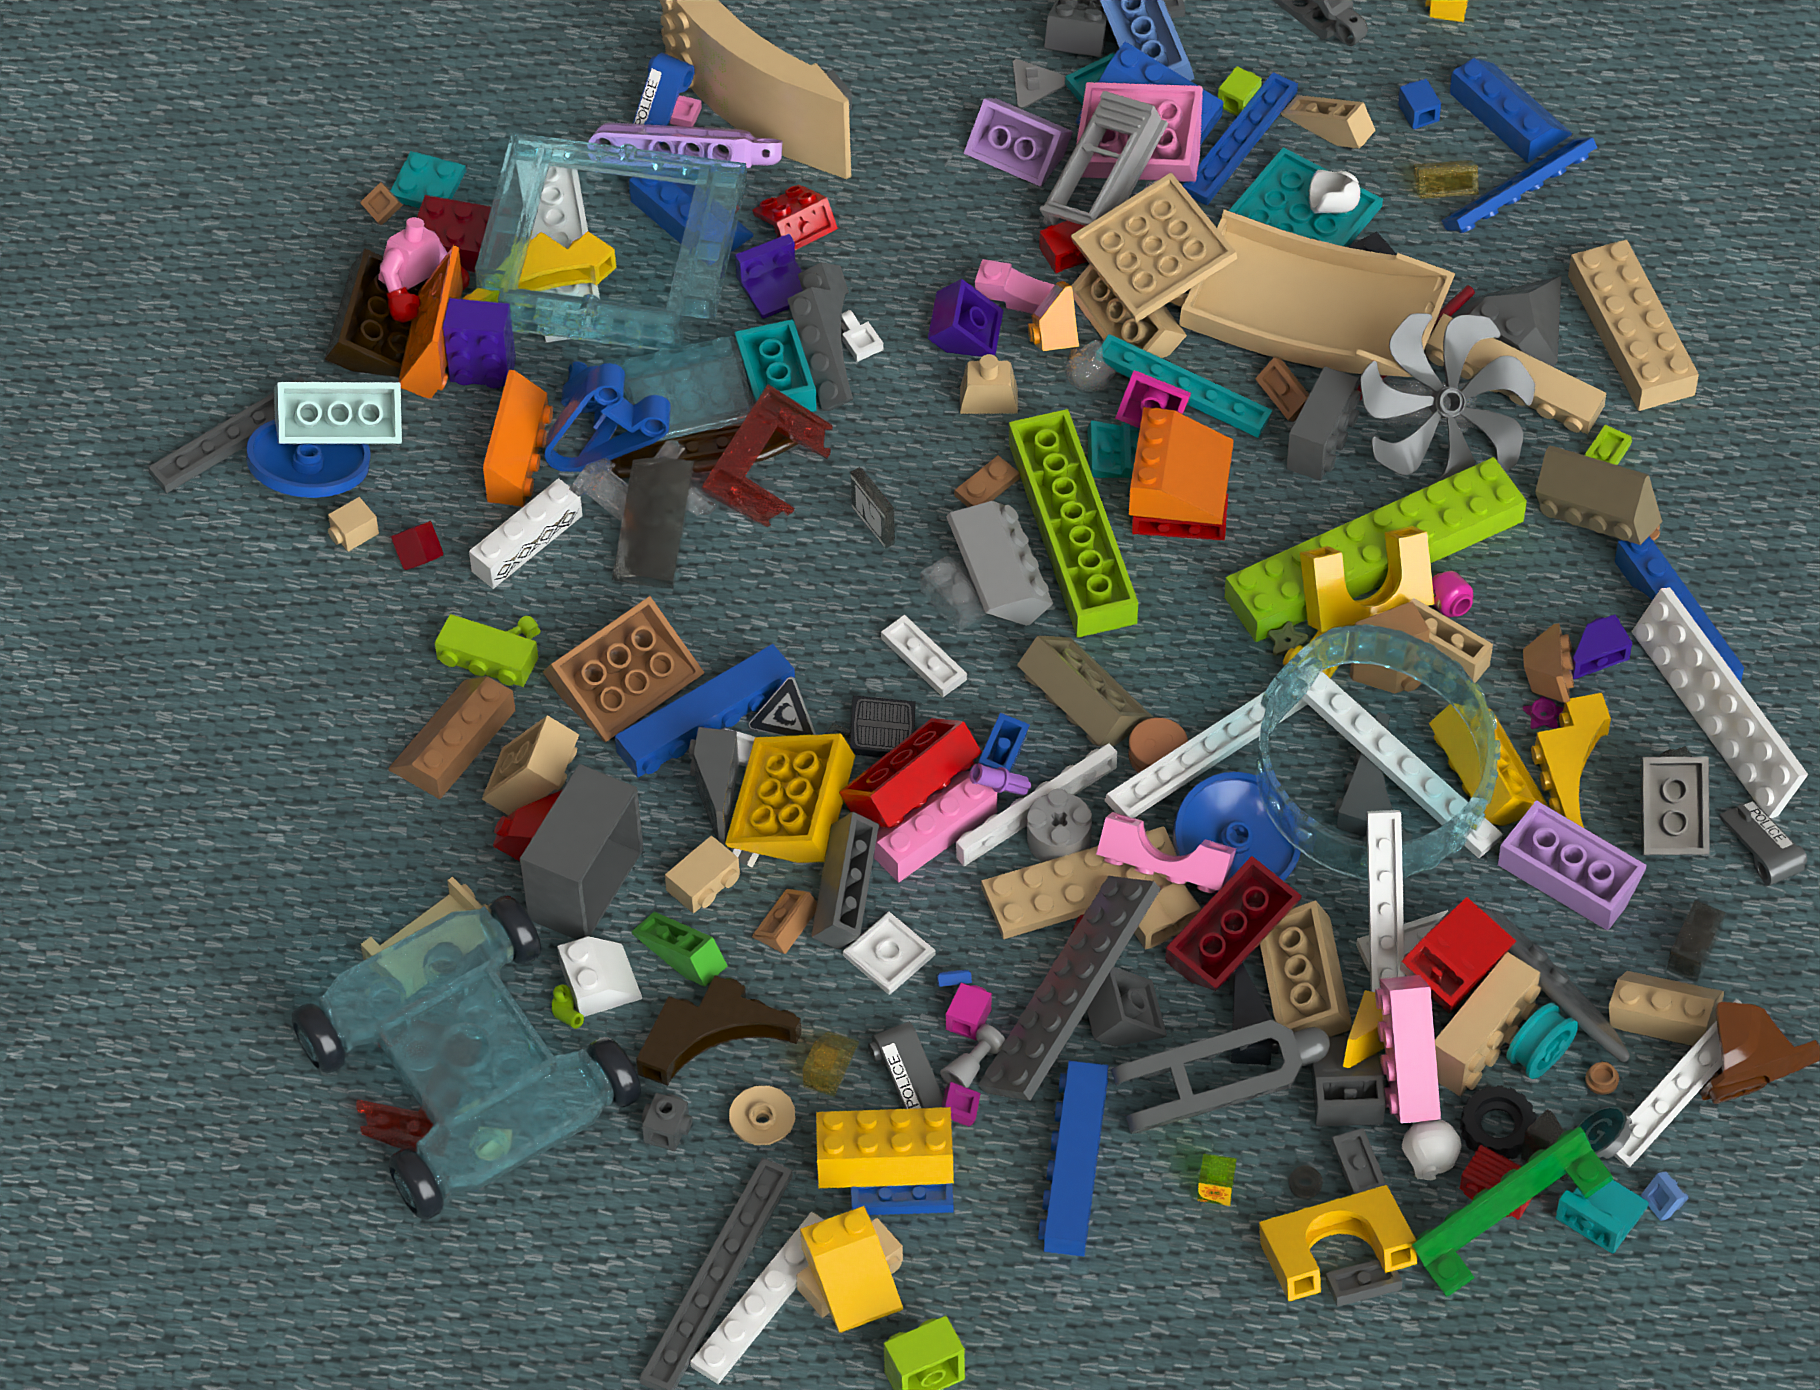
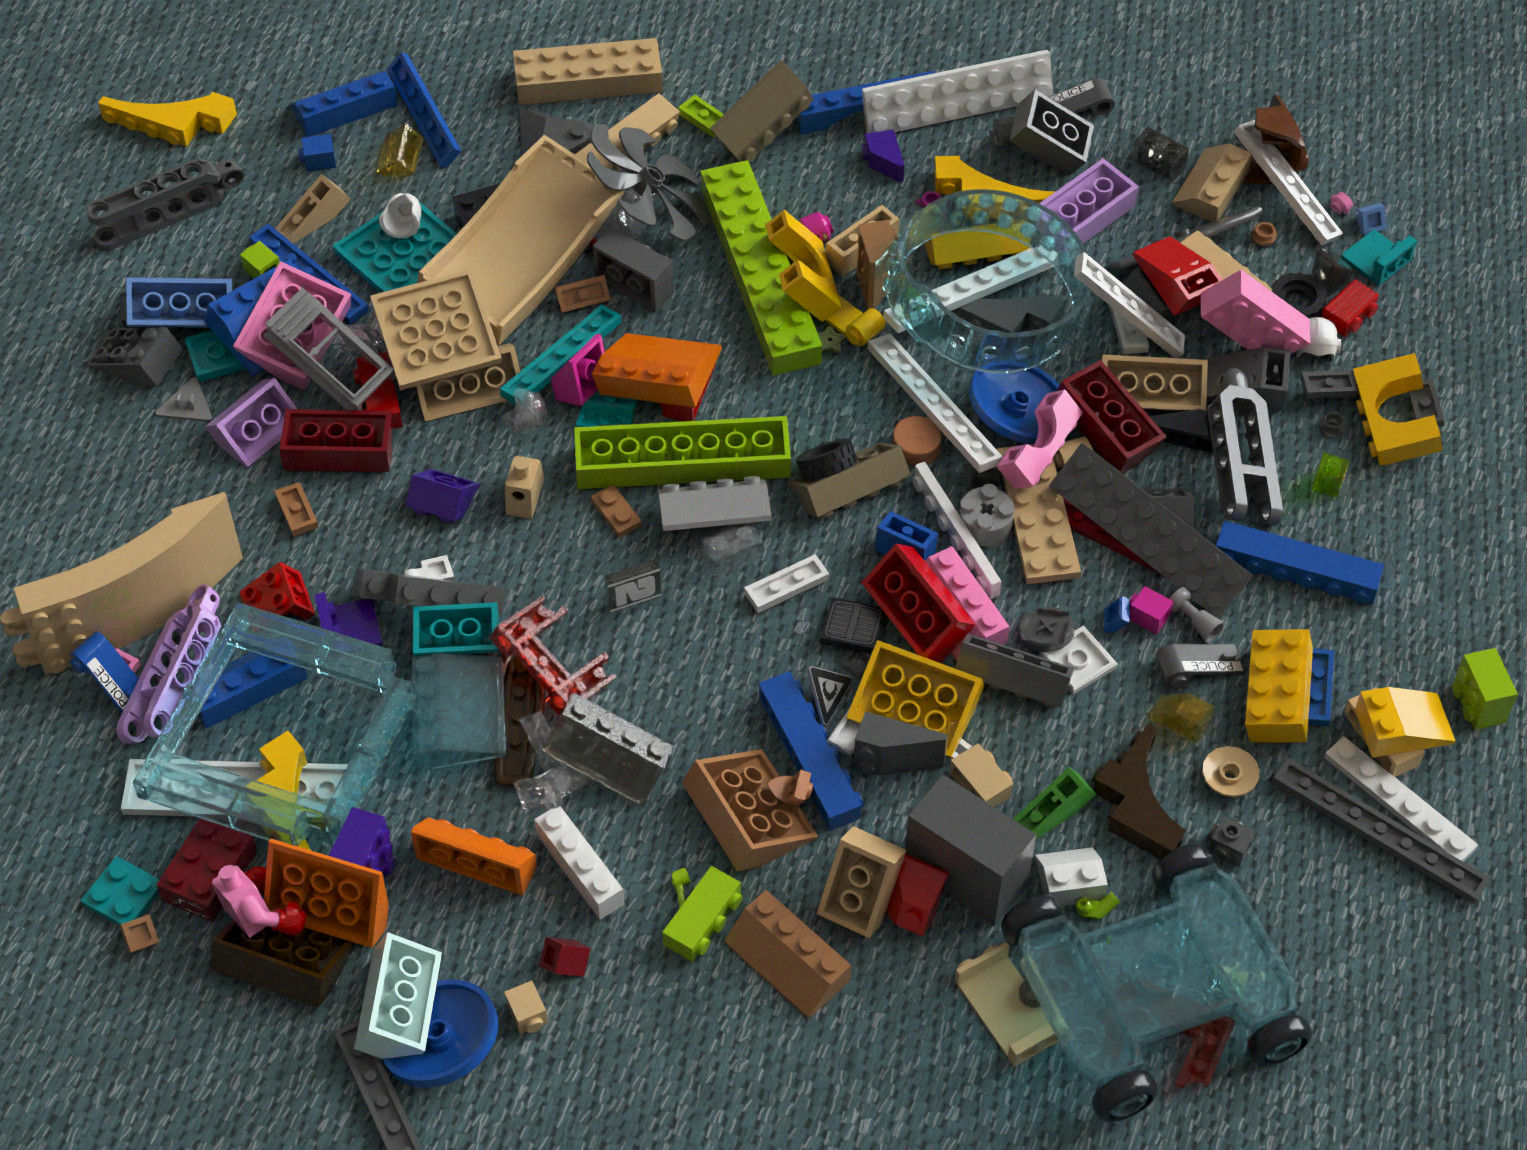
camera: 80 degrees left, 0 degrees up
(602, 391) = (480, 773): blue connector -> none
(647, 698) = (792, 789): none -> nougat plate
(786, 920) = (1031, 729): medium nougat slope -> none
(914, 204) = (296, 509): none -> medium nougat plate
(919, 913) = (1046, 629): none -> dark grey tile
(963, 1103) = (1237, 631): magenta plate -> none
(999, 779) = (946, 538): medium lavender axle -> none
(1005, 284) = (421, 447): bright pink slope -> none
(1006, 209) = (336, 440): none -> dark red slope
(1055, 320) = (474, 419): light orange slope -> none
(1092, 655) = (826, 459): none -> black tyre
(1364, 1036) = (1216, 348): yellow slope -> none
(1542, 1040) = (1244, 246): teal wheel -> none
(1550, 664) = (903, 182): medium nougat slope -> none
(1568, 1155) = (1371, 248): green bracket -> none
(1607, 1130) = (1320, 232): tile -> none
(1683, 1161) = (1341, 203): none -> bright pink plate

